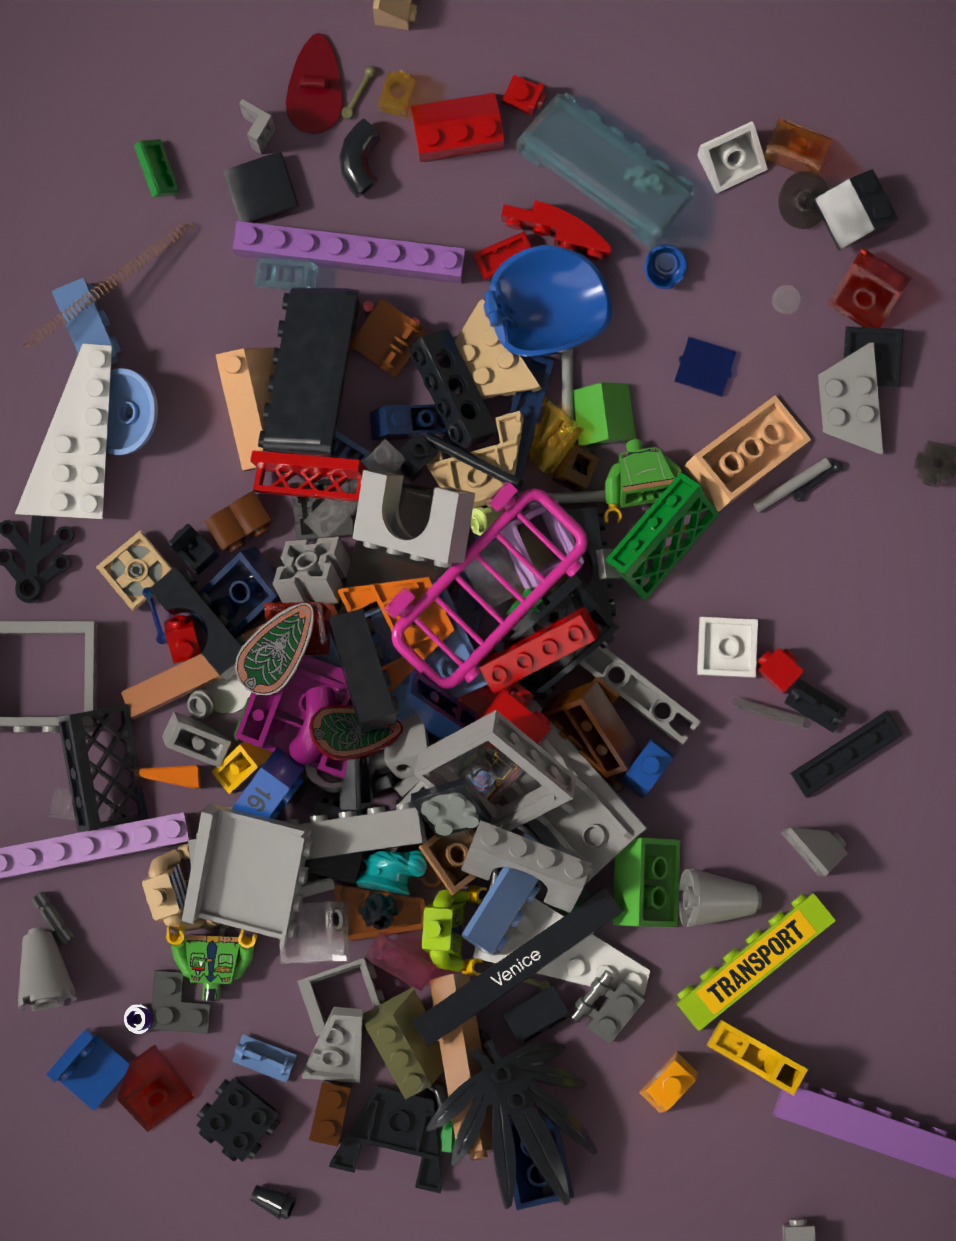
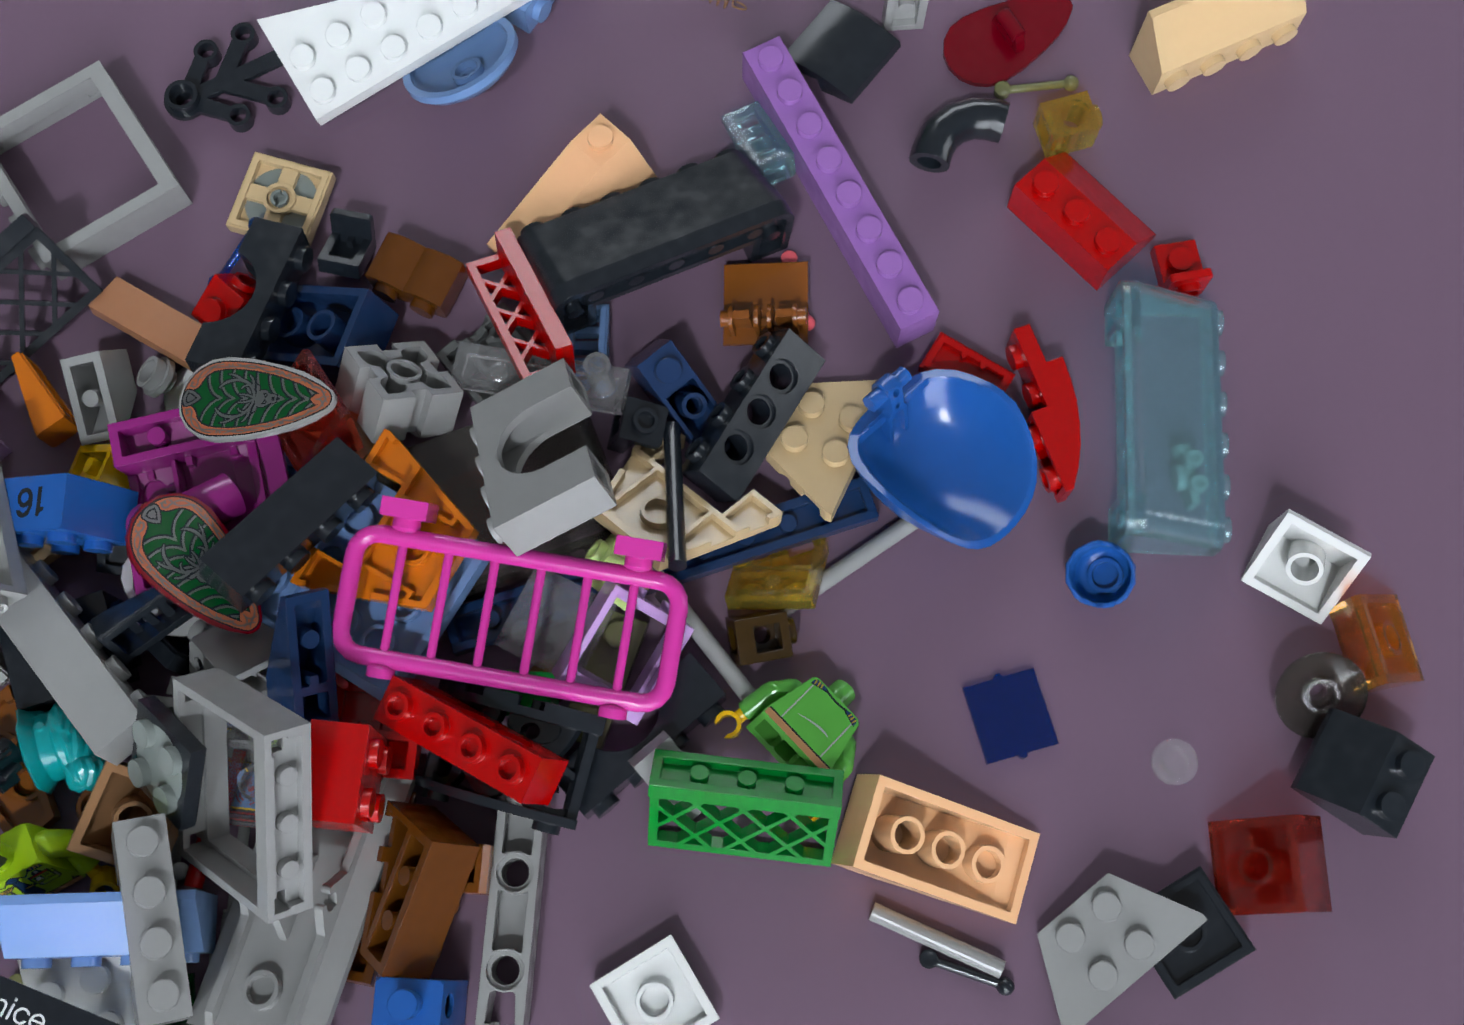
camera: 55 degrees right, 10 degrees down
(604, 414) = (856, 626): bright green slope -> none

